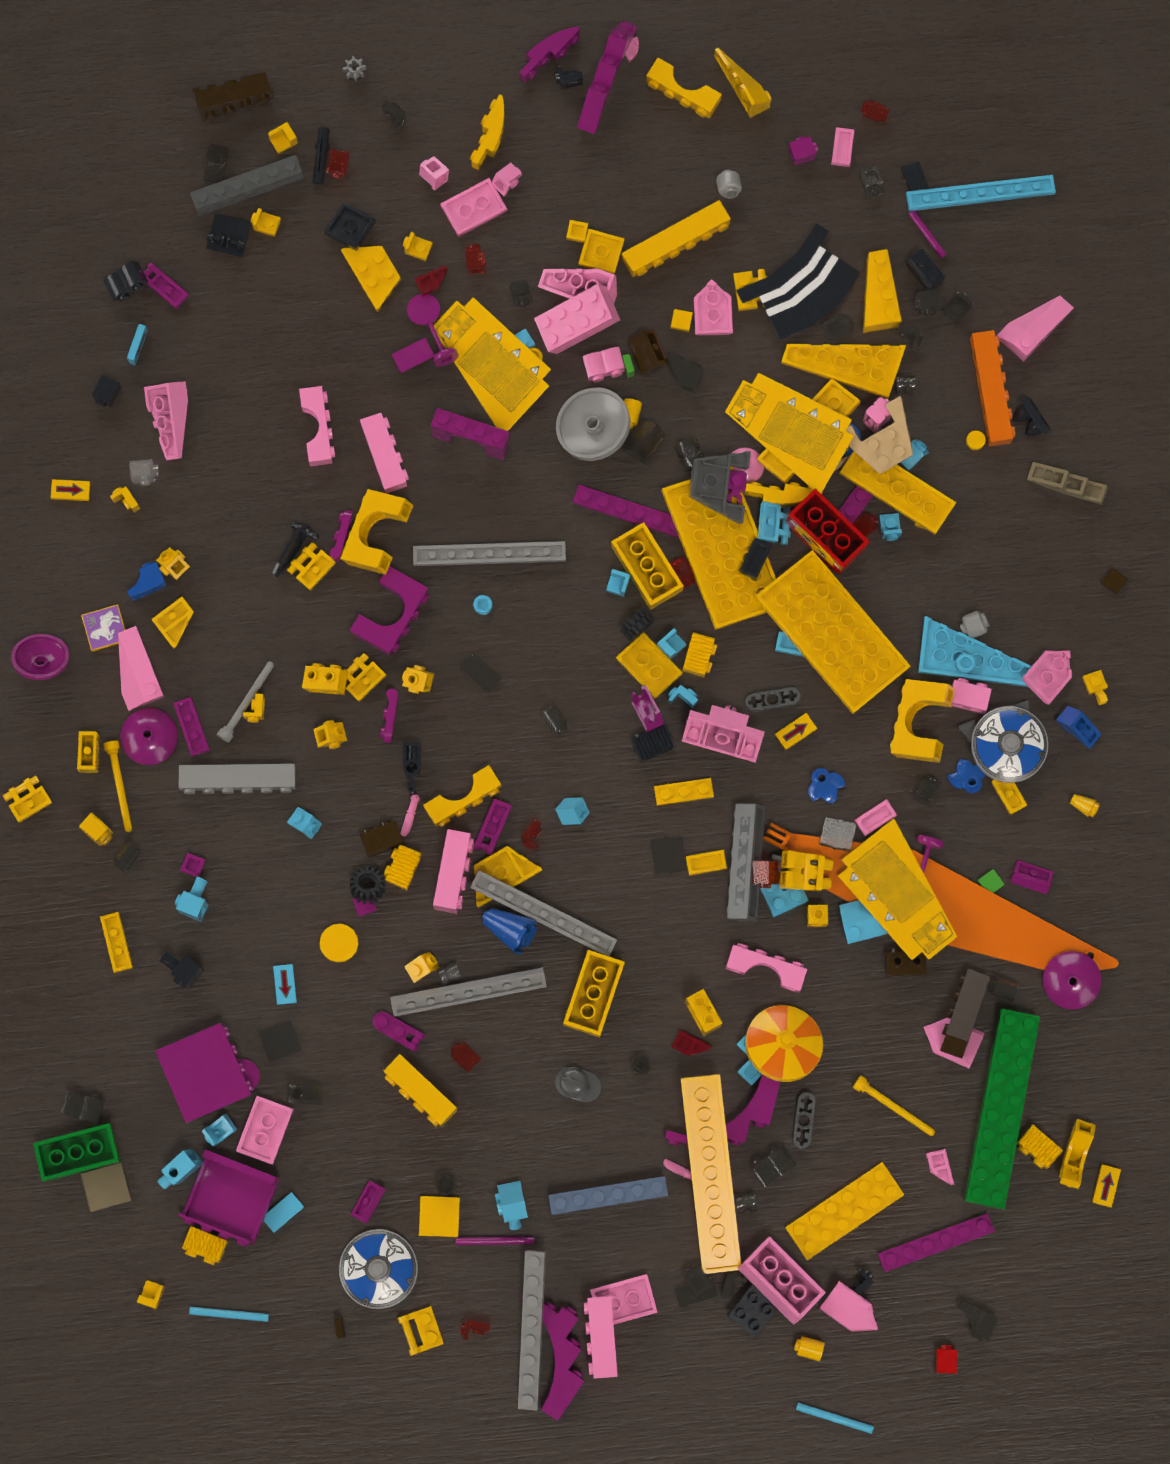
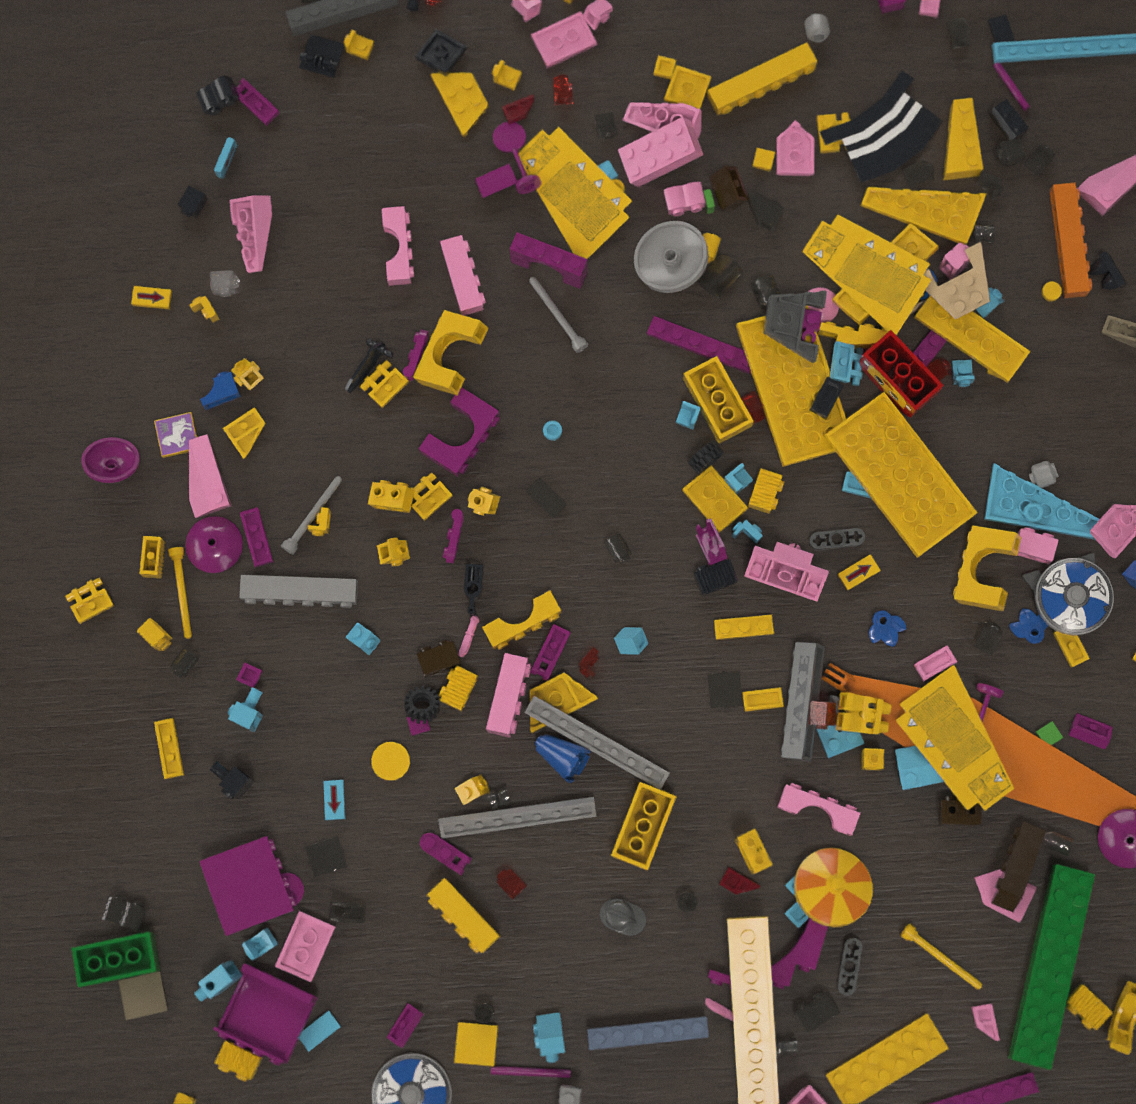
camera: 10 degrees right, 0 degrees up
(489, 553) = (561, 380): light grey plate -> none
(504, 515) = (578, 343): none -> light grey piece
(837, 834) = (896, 678): clear smoke piece -> none

